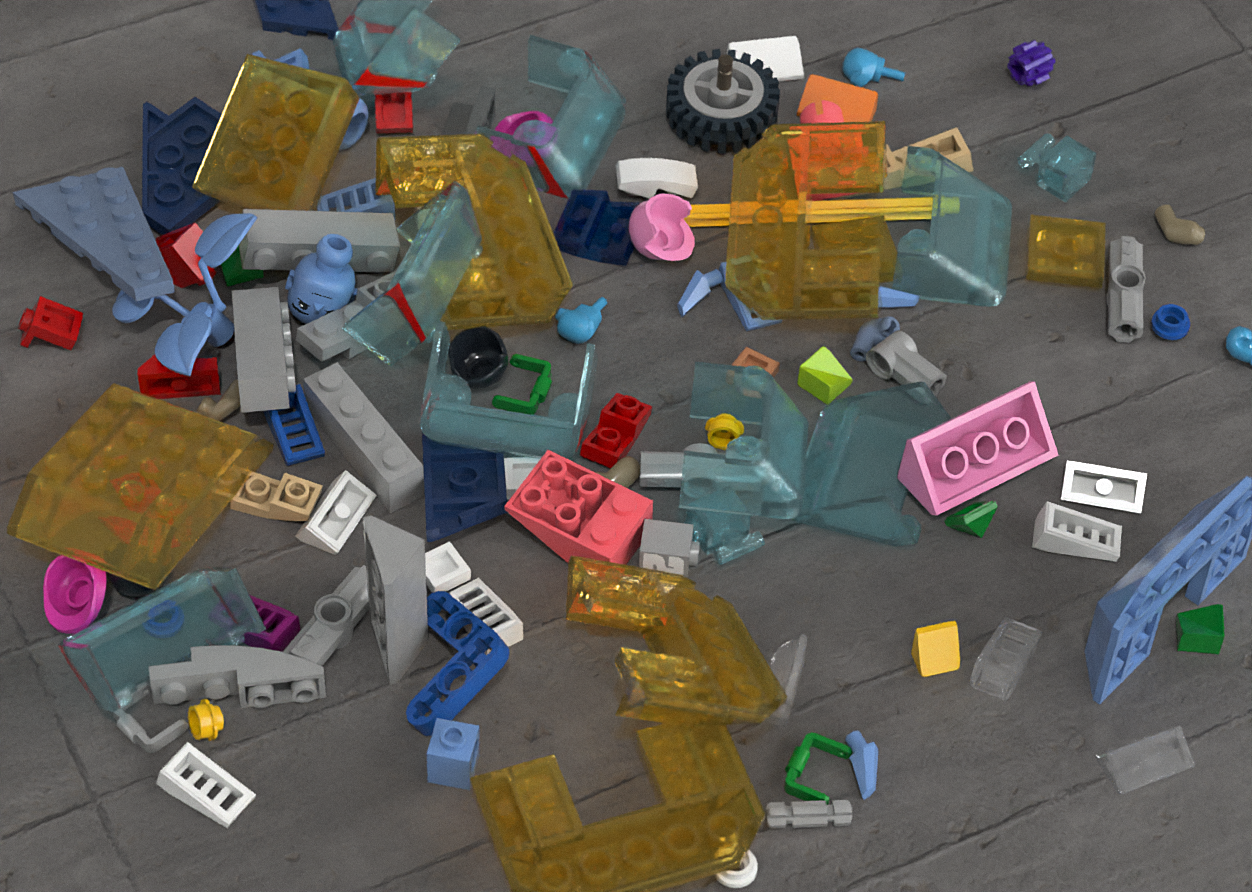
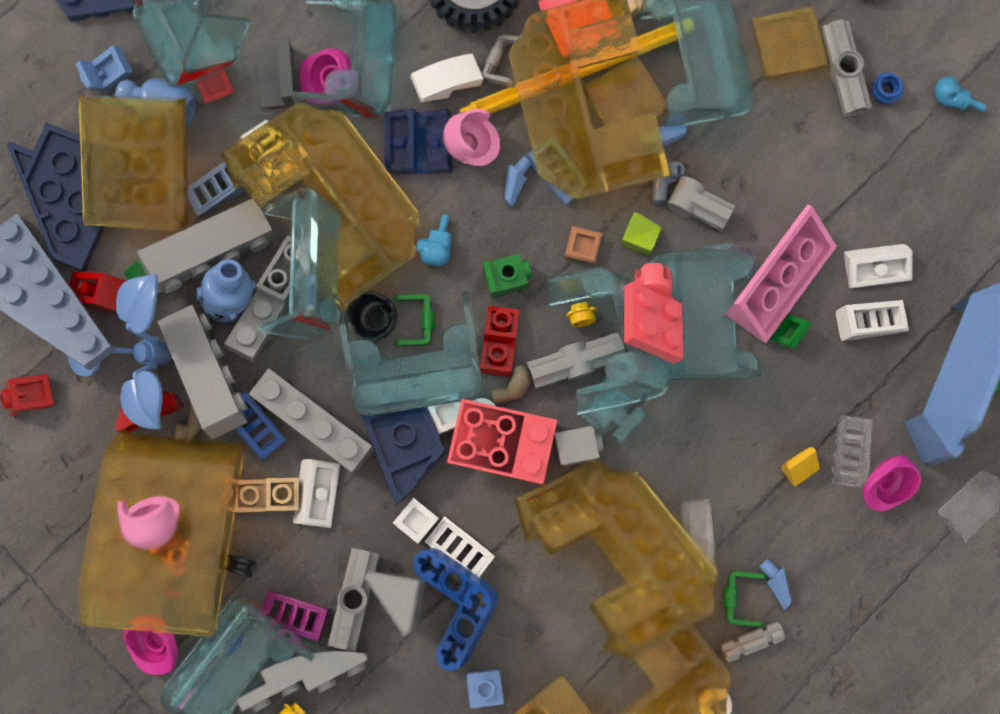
camera: 15 degrees left, 30 degrees up
(140, 426) = (149, 522): none -> bright pink helmet
(214, 550) = (240, 565): none -> black bush
(650, 369) = (501, 285): none -> green brick
(710, 187) = (494, 59): none -> light grey piece
(807, 427) = (652, 314): none -> coral plate
(1041, 690) = (891, 483): none -> dark pink hat

